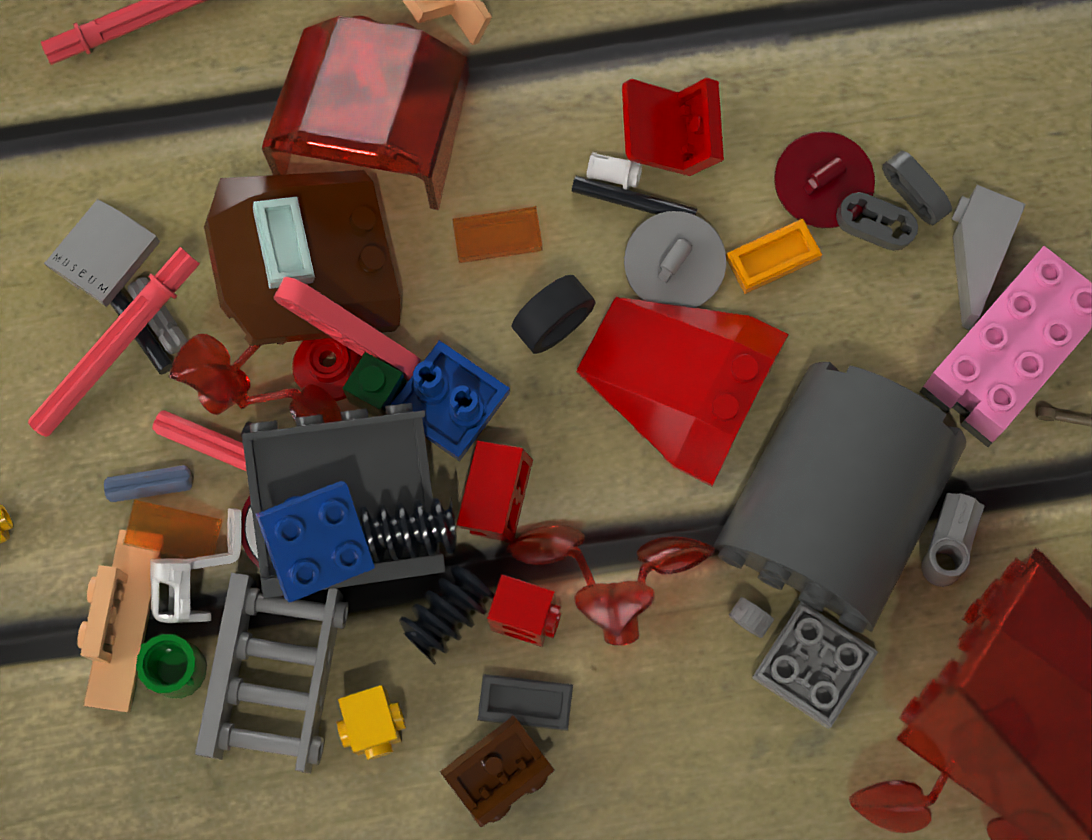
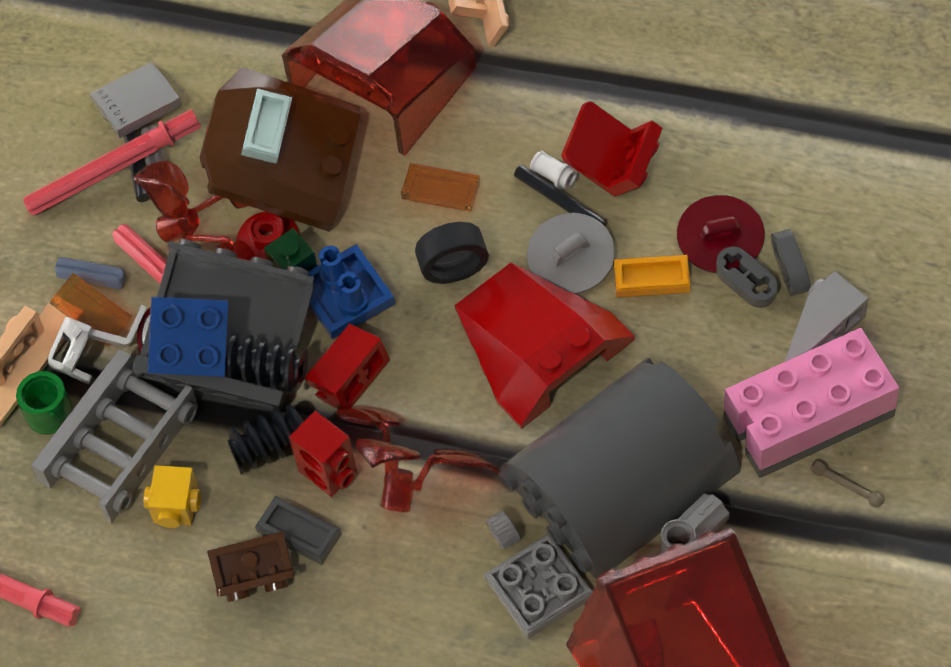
camera: 25 degrees right, 15 degrees down
(343, 325) = (282, 198): coral beam -> none

